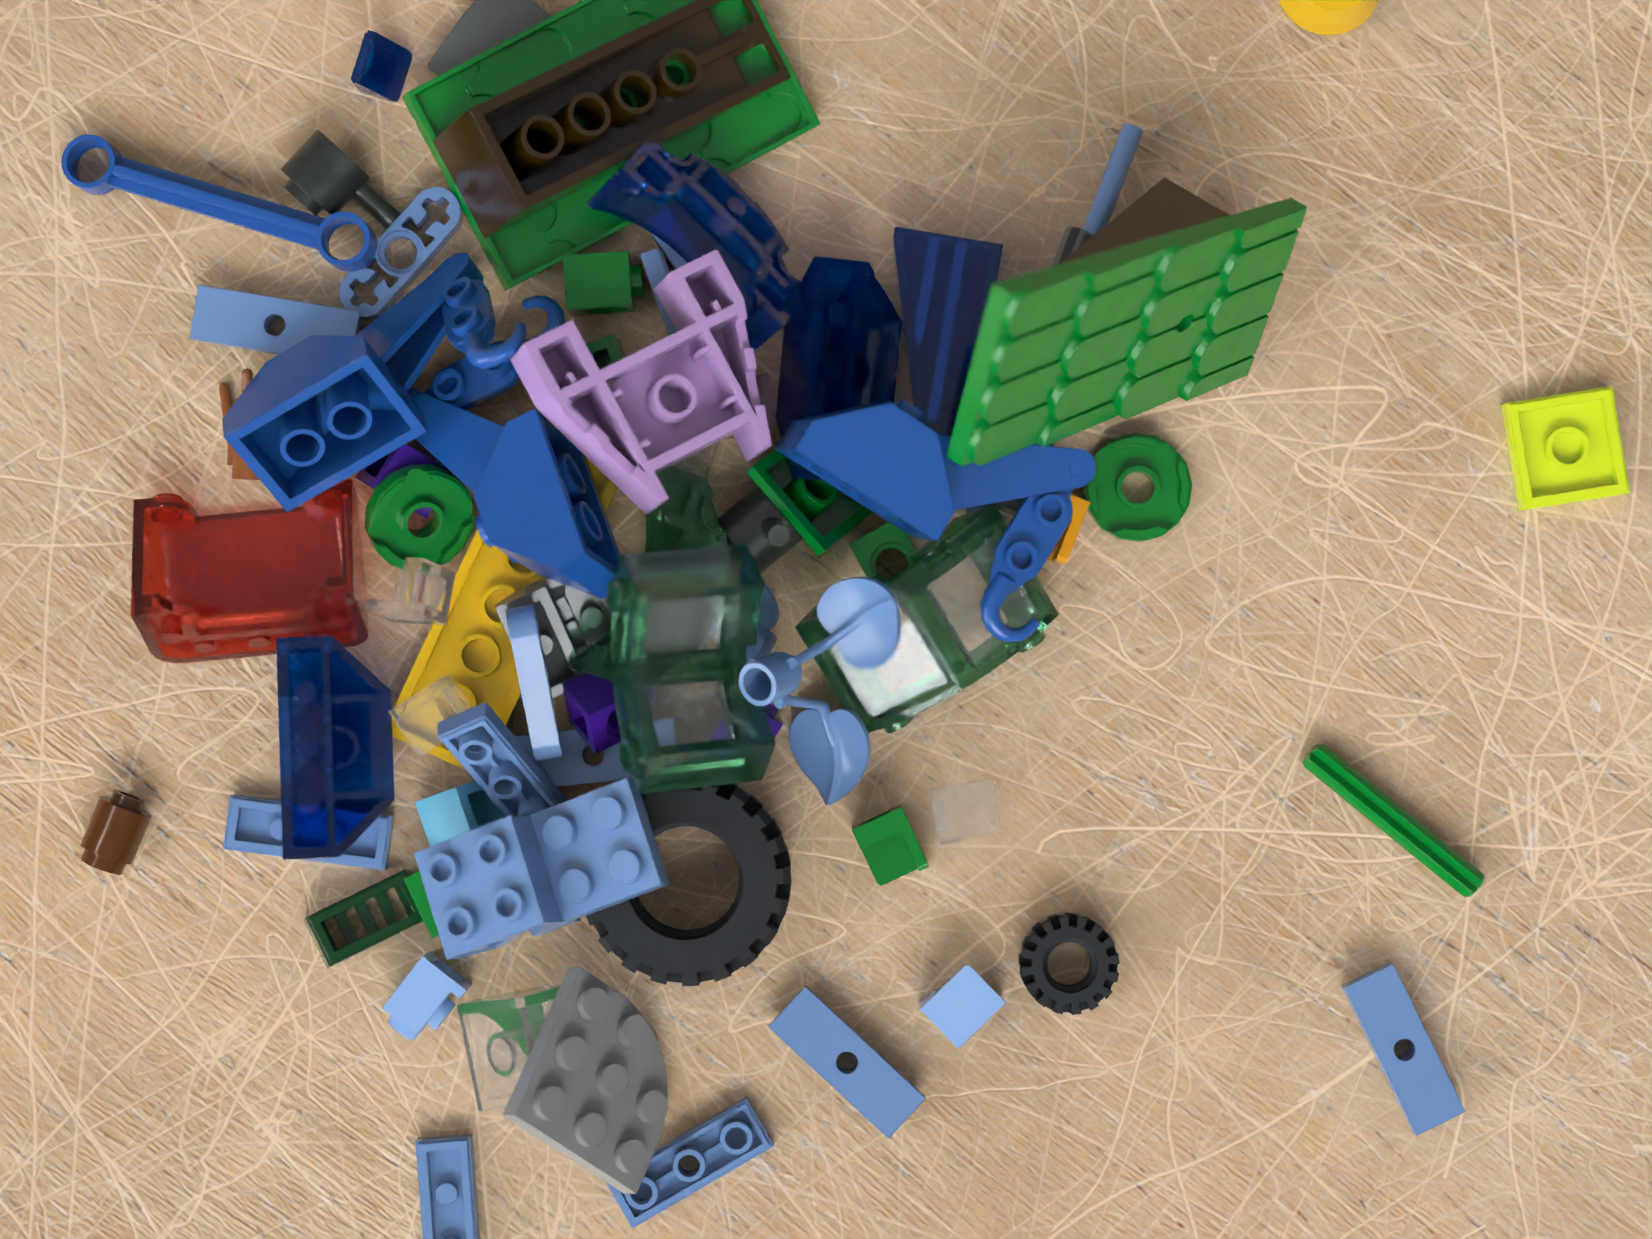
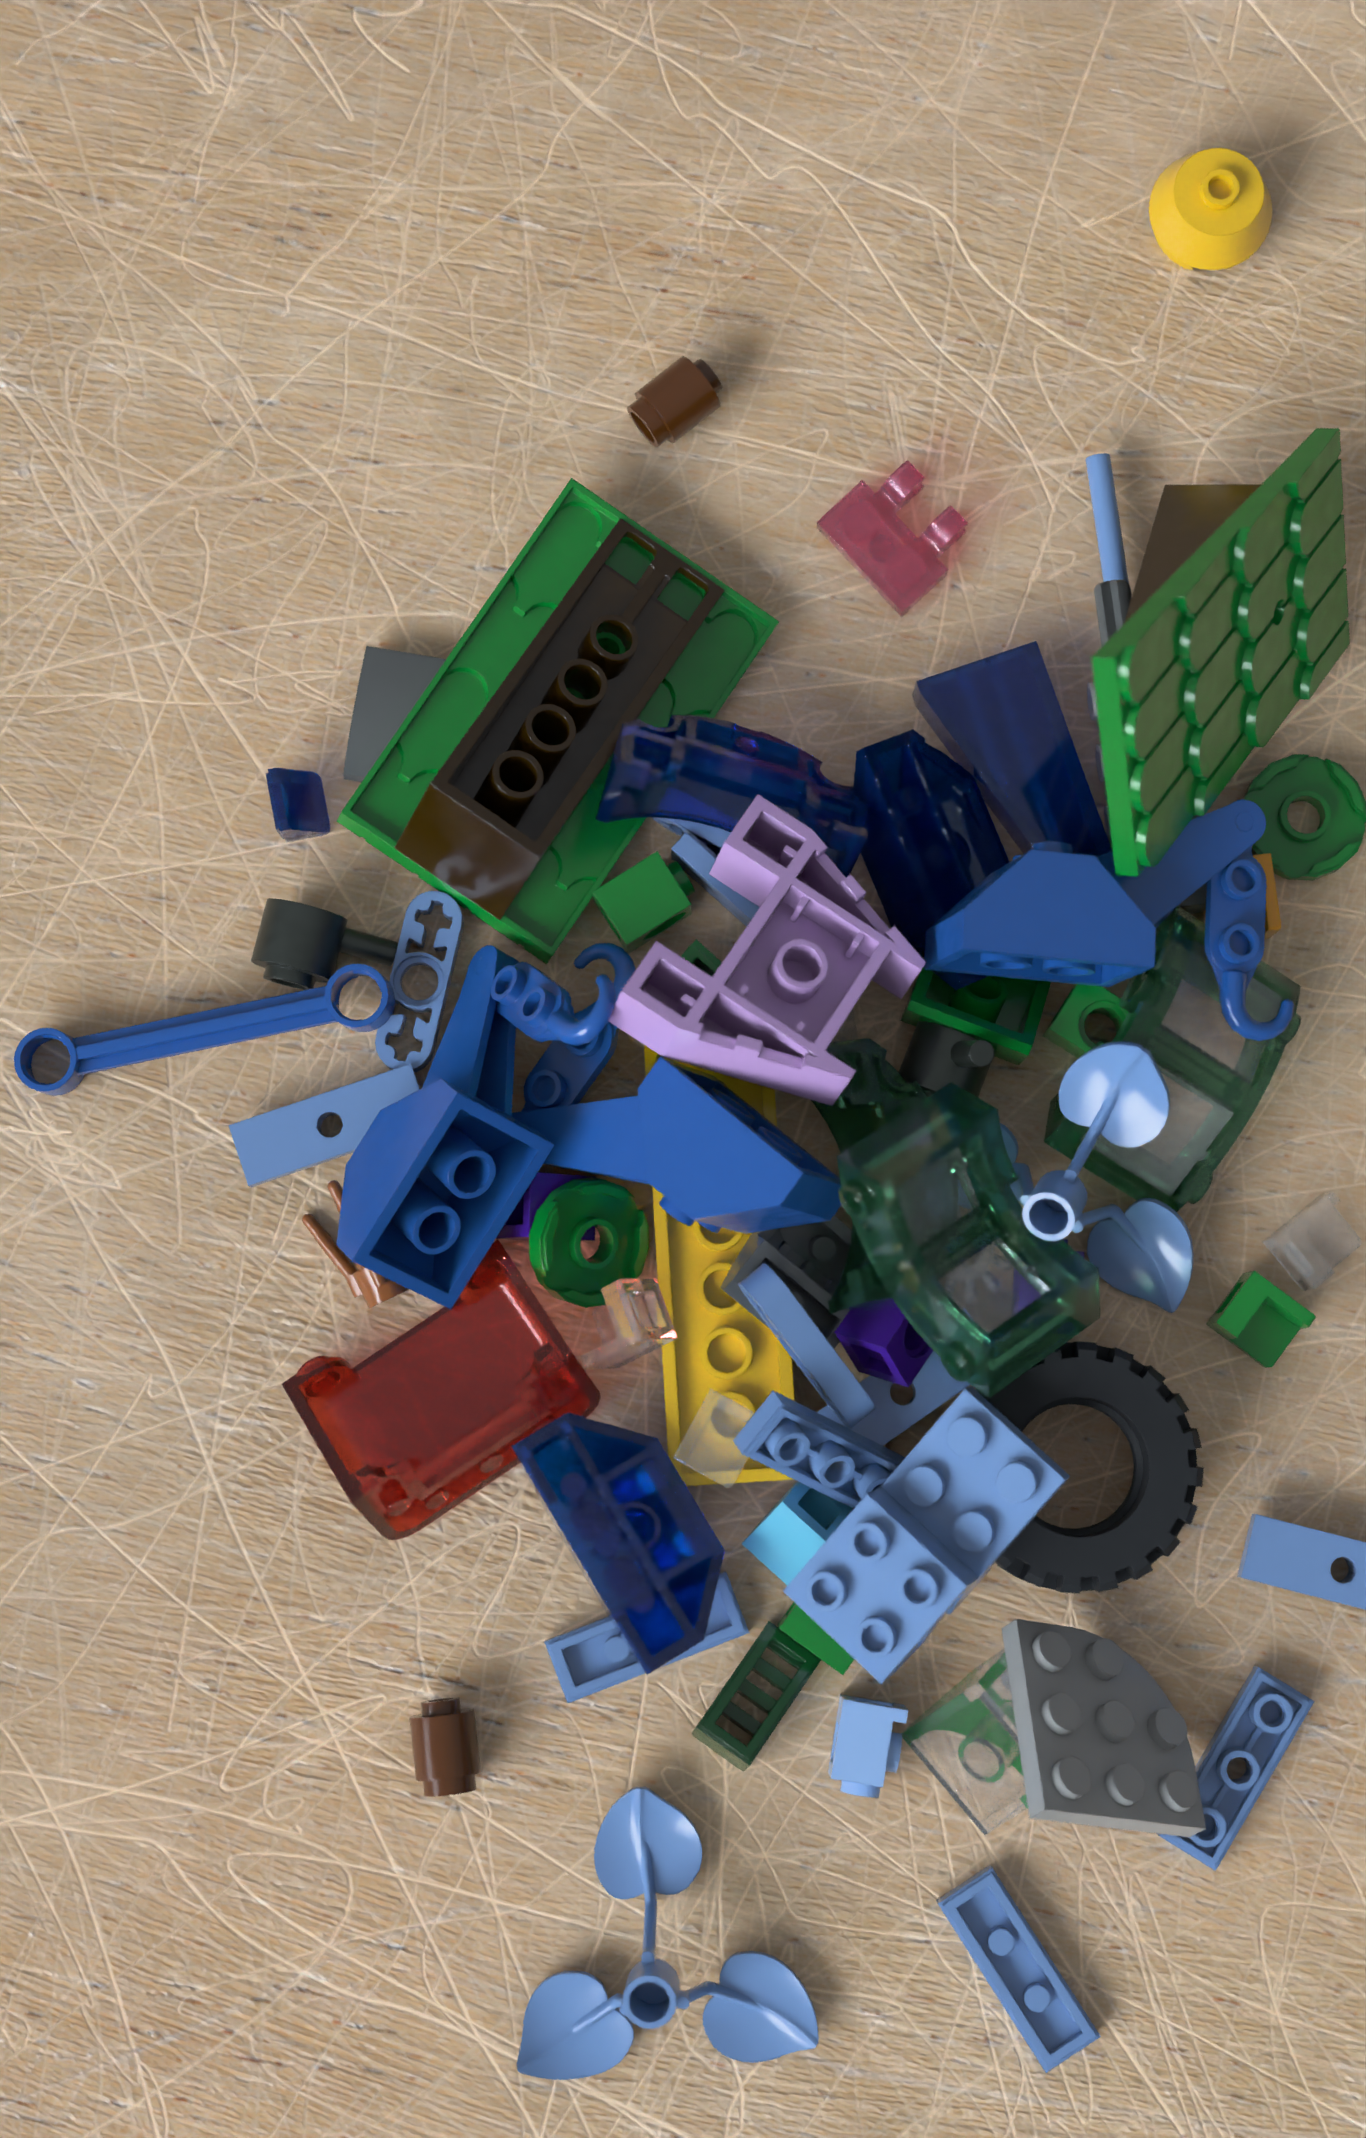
camera: 30 degrees left, 5 degrees down
(104, 1087) = (580, 2032): none -> medium blue plant
(932, 107) = (883, 547): none -> clear pink plate

